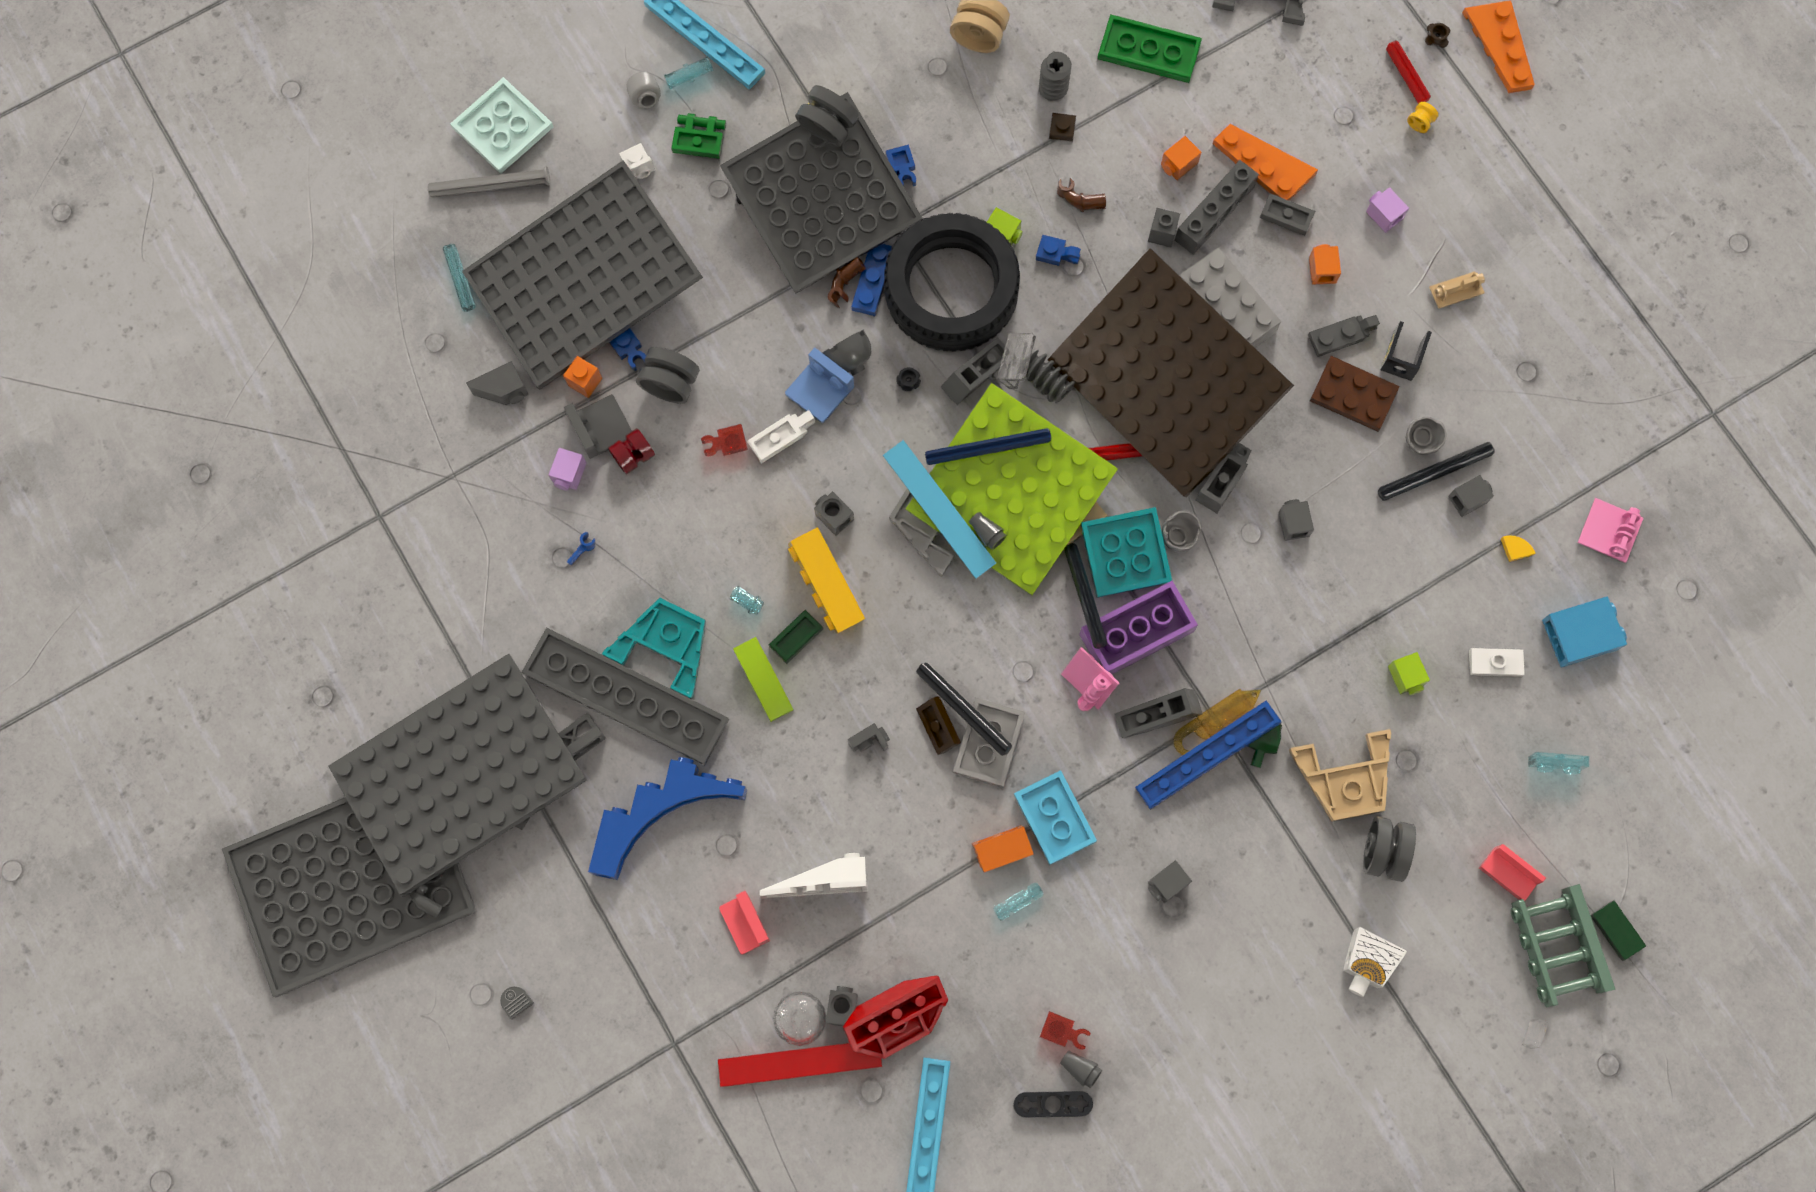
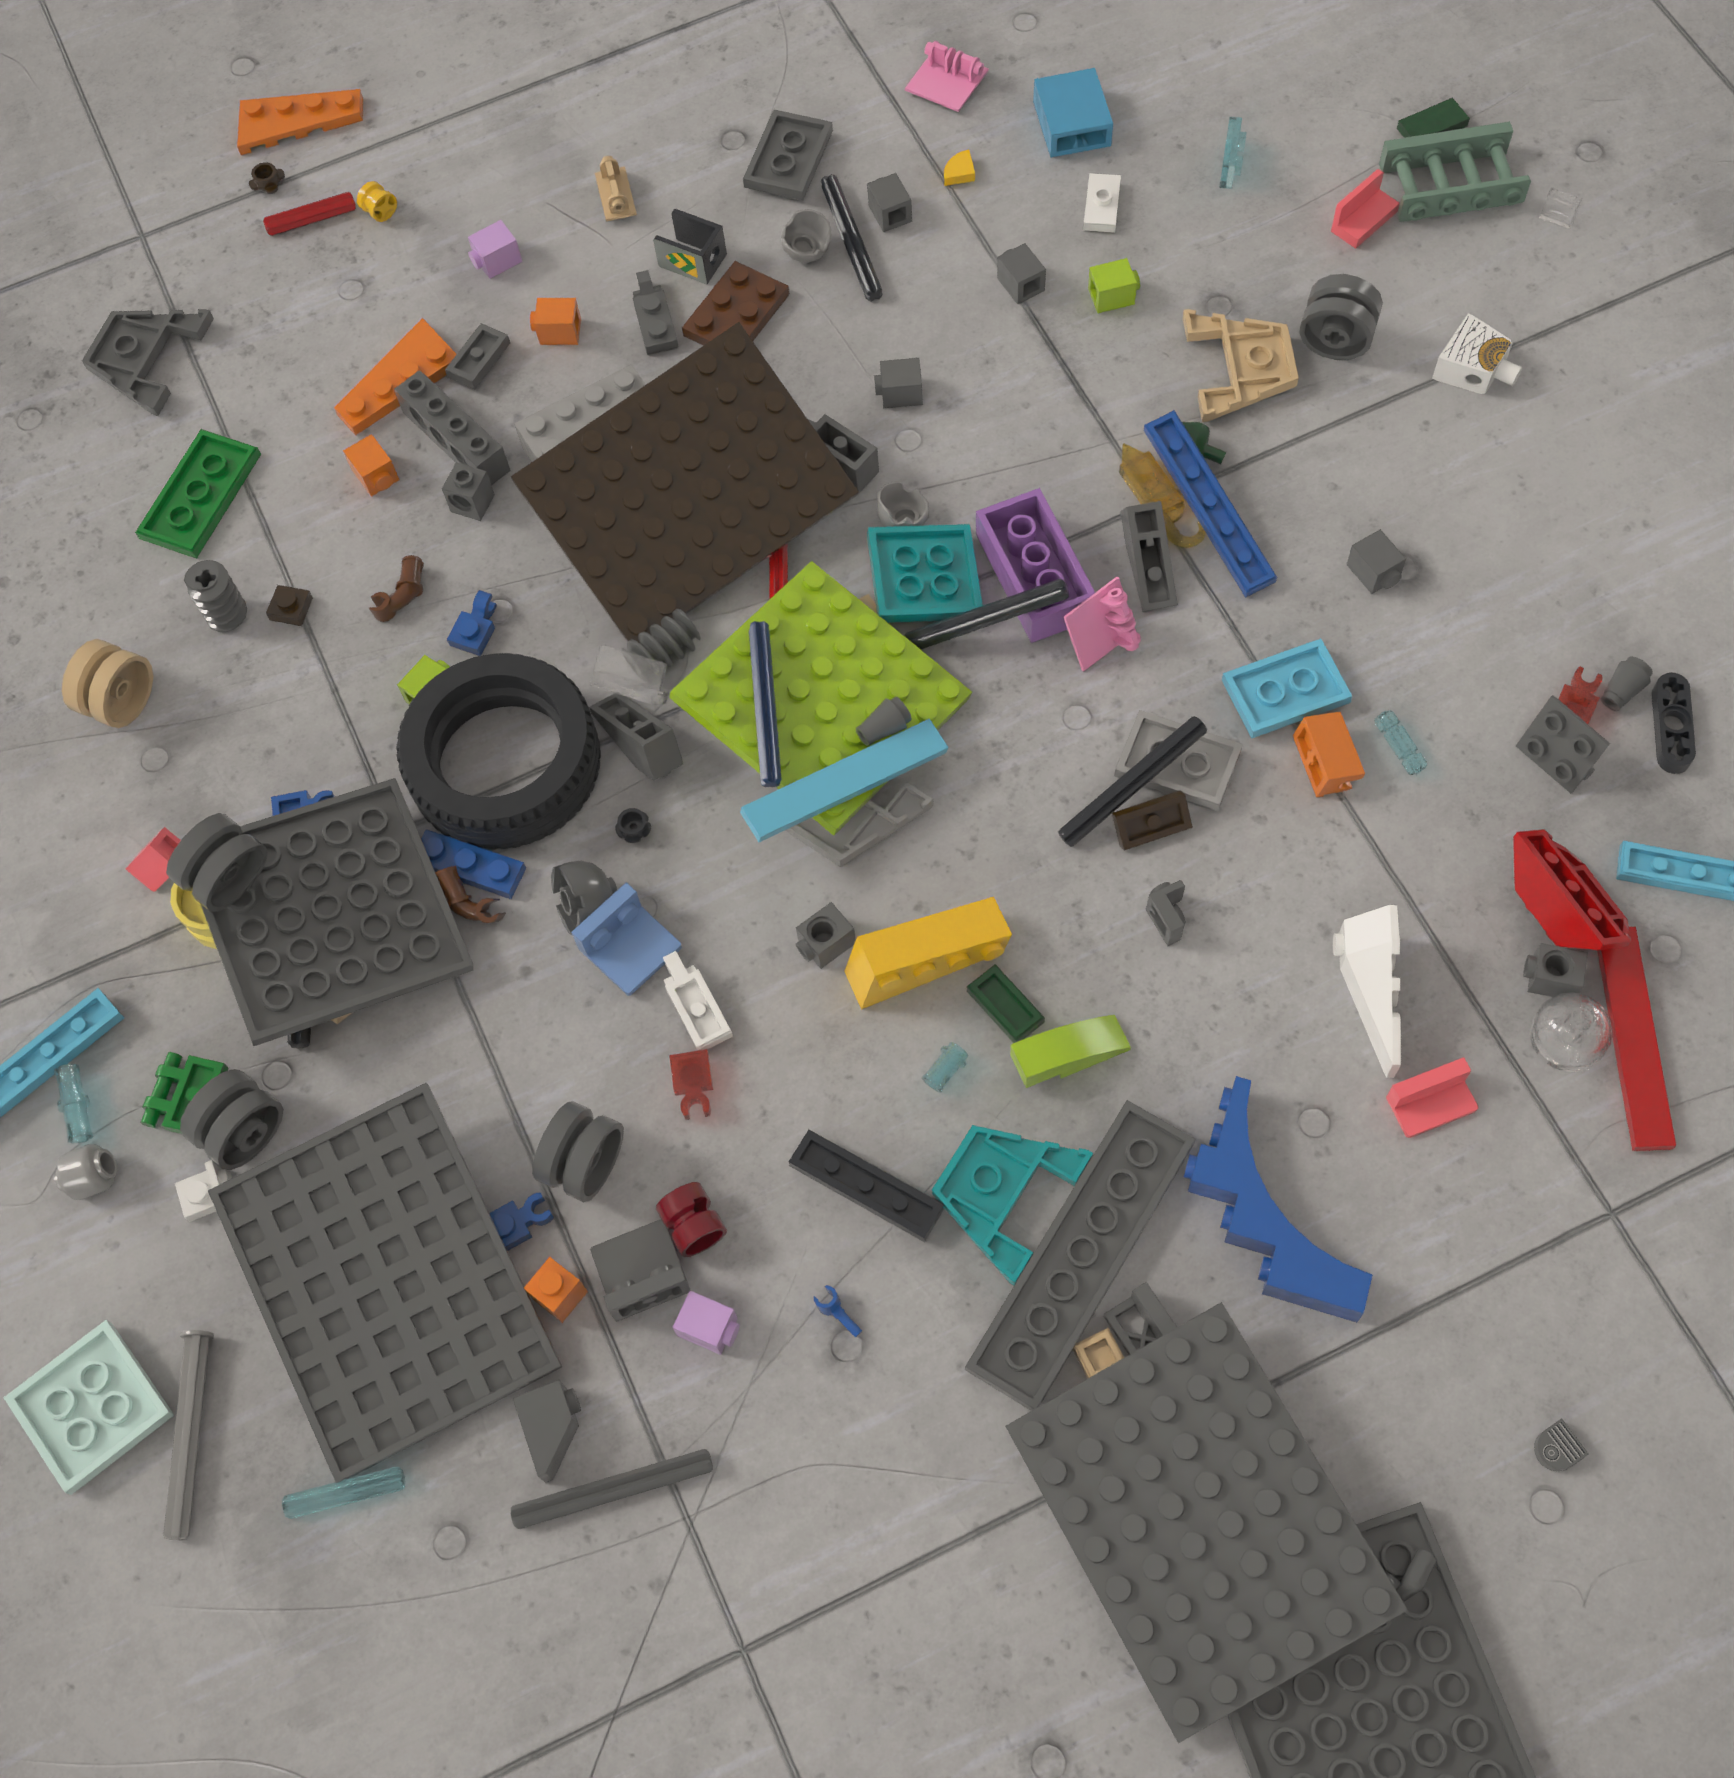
camera: 80 degrees left, 10 degrees down
(467, 429) = (611, 1489): none -> dark grey axle
(561, 711) = (1097, 1352): none -> tan tile
(662, 557) = (866, 1185): none -> black plate
(676, 165) = (231, 1119): none -> dark grey wheel
(859, 85) = (152, 860): none -> coral panel
(1023, 1008) = (1562, 744): none -> dark grey hinge
(1412, 602) = (1021, 273): none -> dark grey brick
(1511, 414) = (788, 154): none -> dark grey plate

